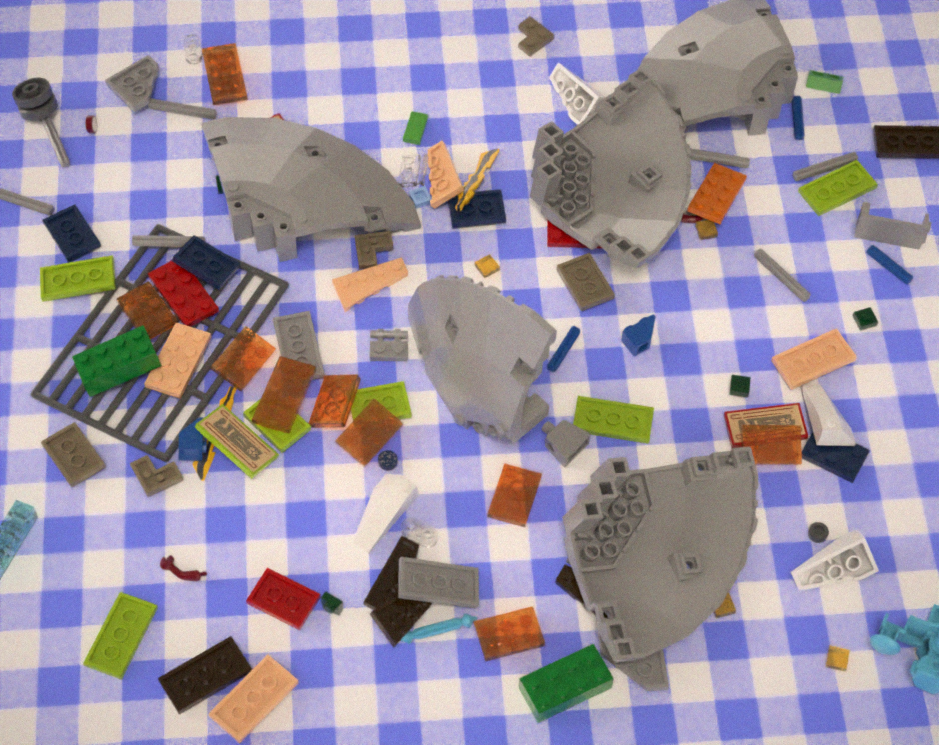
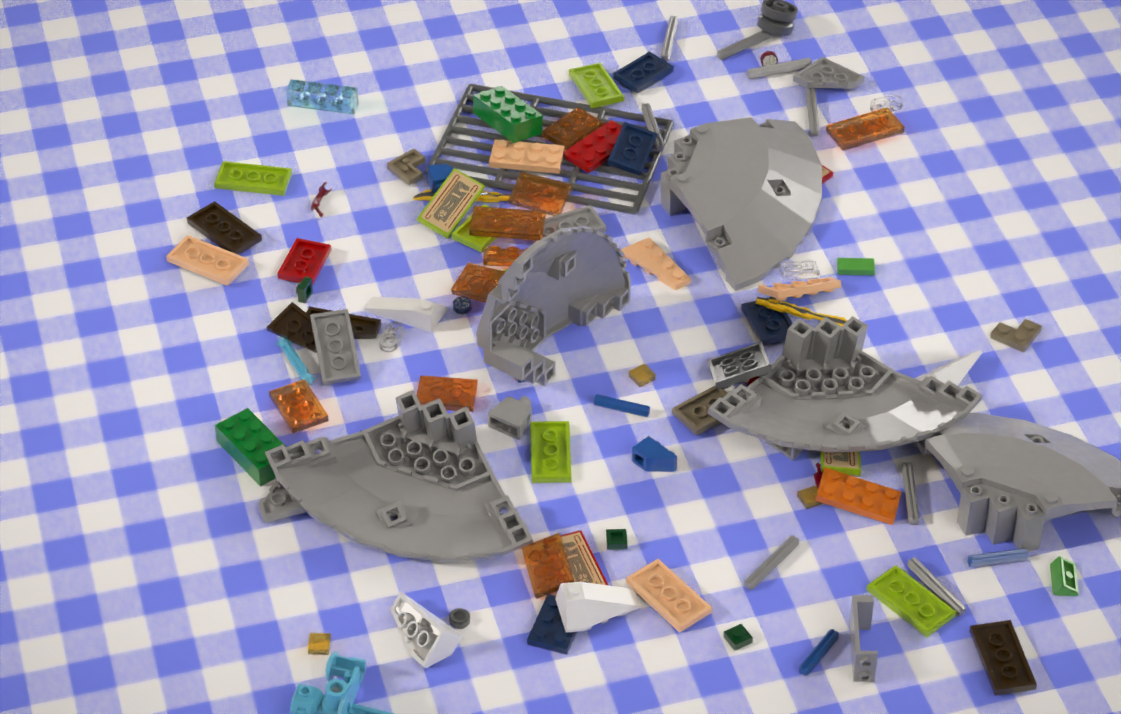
camera: 80 degrees right, 15 degrees down
(73, 454) = (415, 117): dark tan plate -> none
(104, 120) = (778, 68): none -> light grey axle
(369, 244) = (696, 253): dark tan plate -> none
(420, 197) = (768, 279): light blue tile -> none
(487, 266) = (703, 340): clear yellow tile -> none
(545, 240) = (739, 366): none -> dark grey plate
(727, 607) = (360, 553): clear yellow tile -> none

